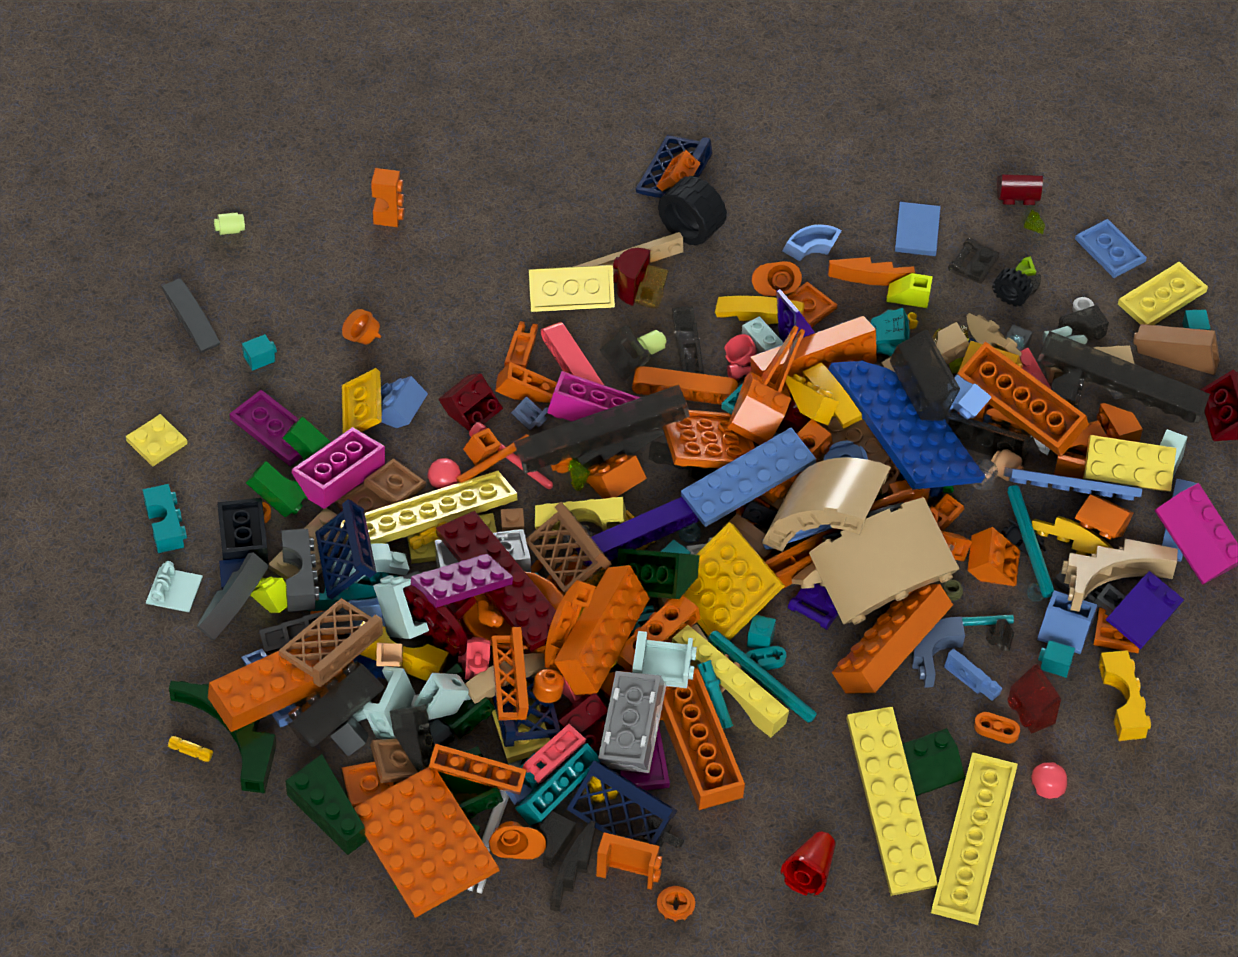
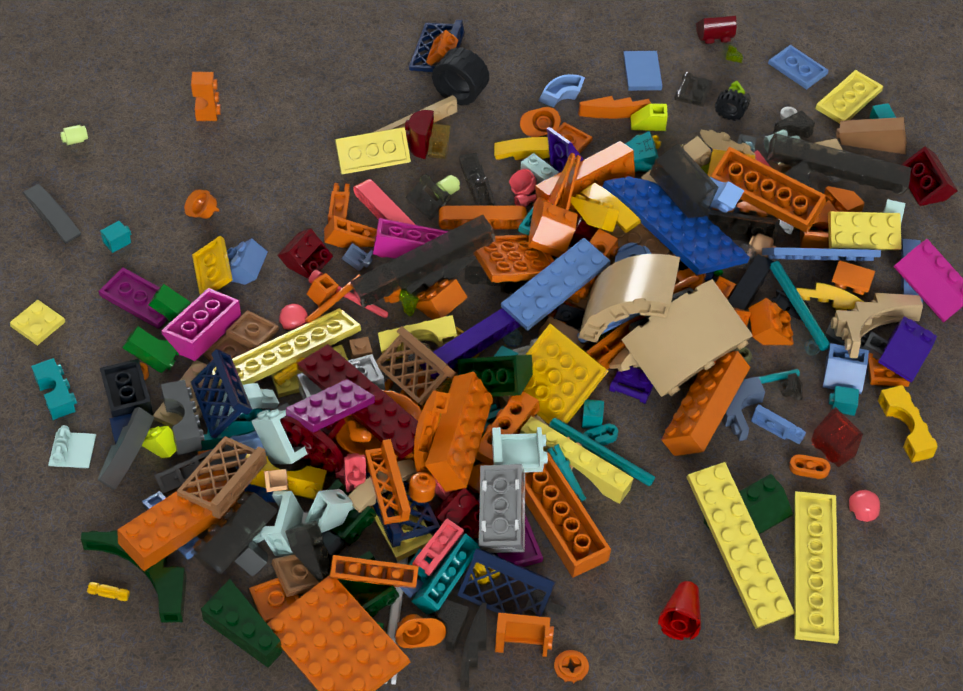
camera: 10 degrees left, 0 degrees up
(980, 507) = (750, 283): none -> black slope

